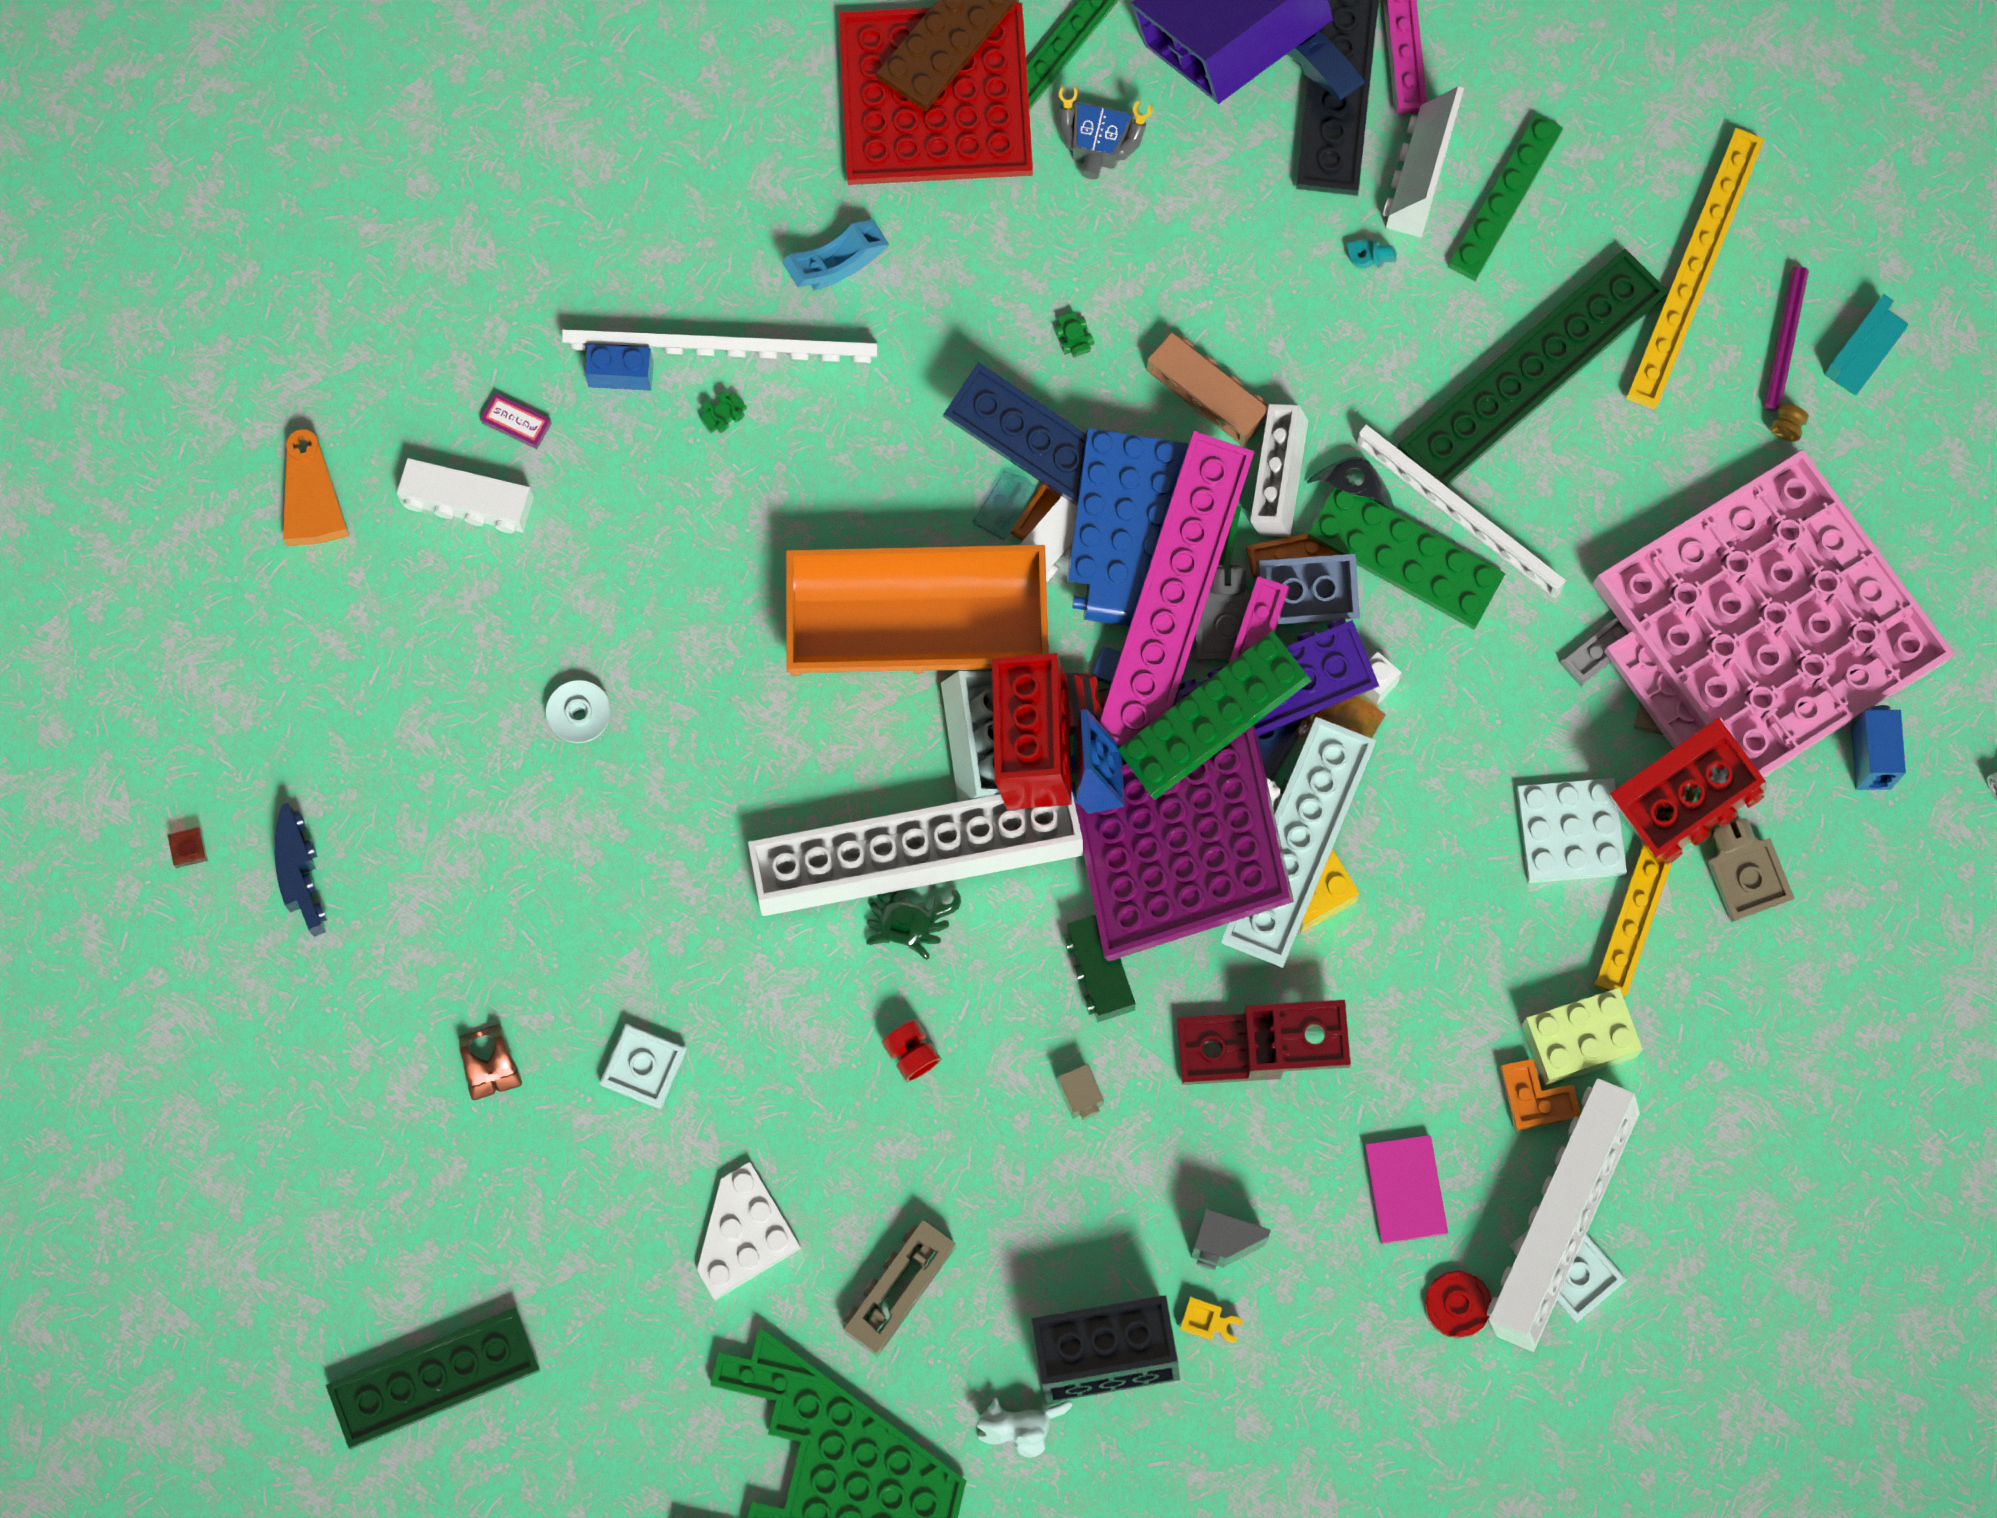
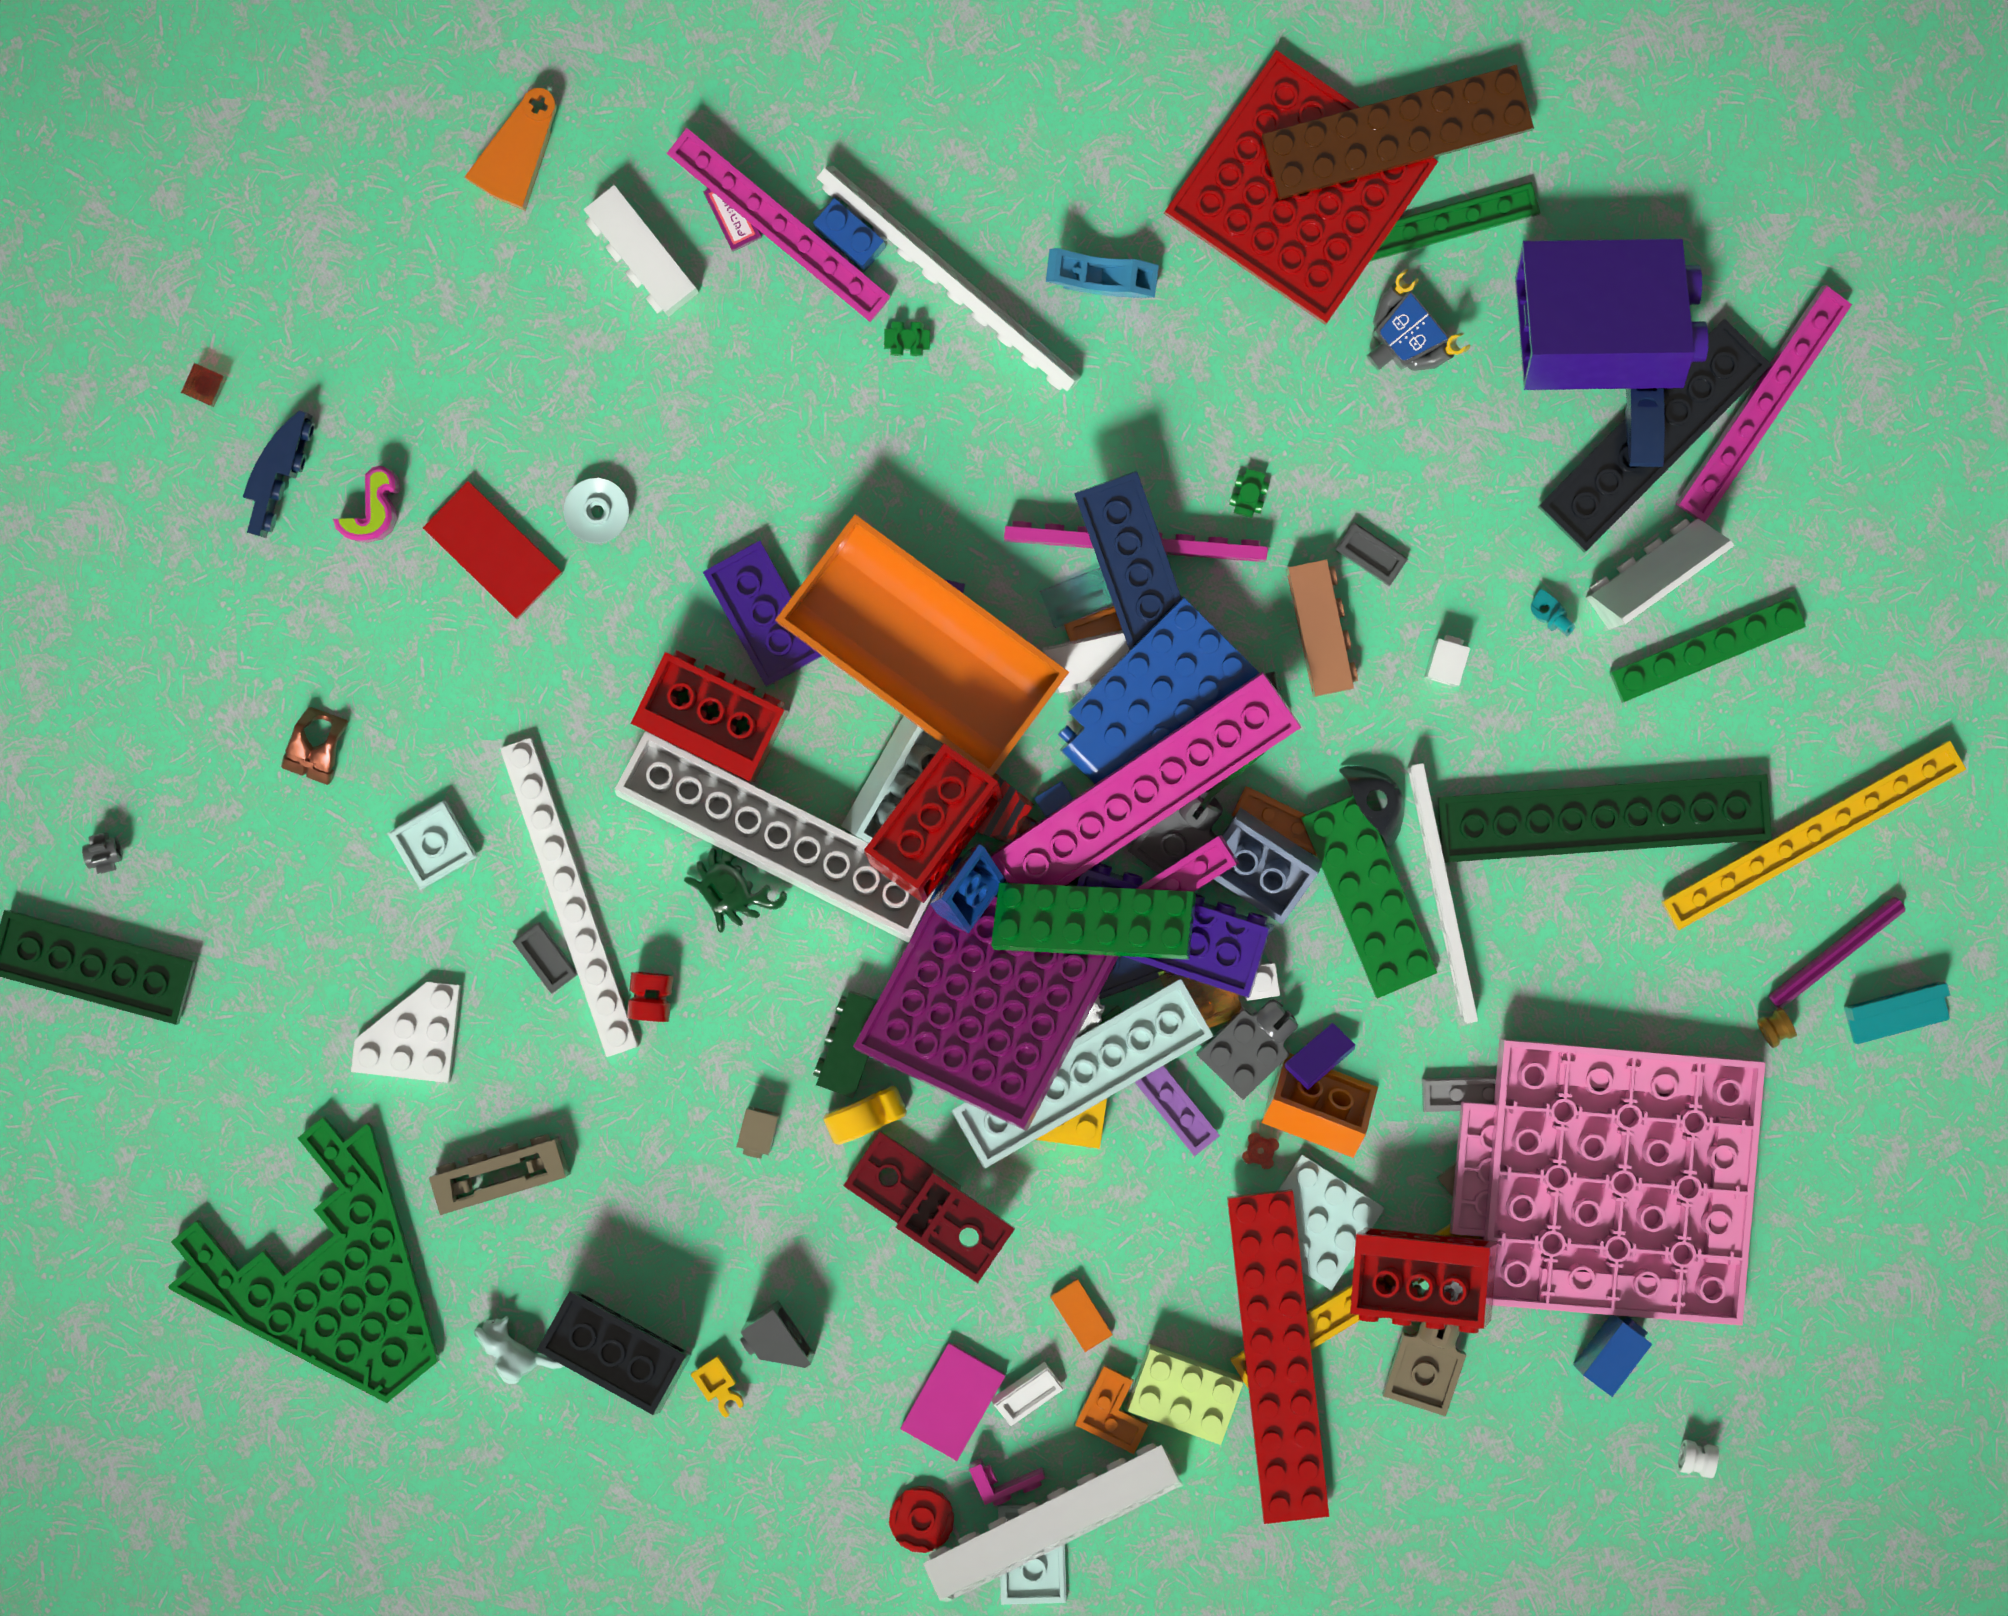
camera: 40 degrees right, 15 degrees up
(374, 1276) = (102, 853): none -> dark grey gear
(404, 837) = (379, 509): none -> dark pink animal
(517, 804) = (492, 550): none -> red tile
(558, 399) = (778, 225): none -> dark pink plate
(768, 695) = (752, 600): none -> dark purple plate
(786, 1027) = (569, 897): none -> white plate
(793, 811) = (690, 724): none -> red brick
(802, 1088) = (545, 957): none -> dark grey tile
(977, 454) = (1182, 544): none -> dark pink plate
(1154, 1014) = (865, 1115): none -> yellow animal
(1201, 311) = (1371, 554): none -> dark grey tile
(1279, 470) = (1321, 746): white brick -> none
(1322, 343) = (1447, 661): none -> white brick
(1393, 824) = (1178, 1110): none -> medium lavender plate
(1410, 735) = (1249, 1047): none -> dark grey plate
(1451, 1042) = (1081, 1315): none -> orange tile
(1460, 1135) = (1027, 1394): none -> white tile
(1469, 699) = (1320, 1056): none -> dark purple tile
(1479, 816) = (1256, 1142): none -> clear red plate
(1481, 1228) = (985, 1478): none -> dark pink bracket
(1500, 738) = (1328, 1113): none -> orange slope
(1629, 951) = (1278, 1356): none -> red plate

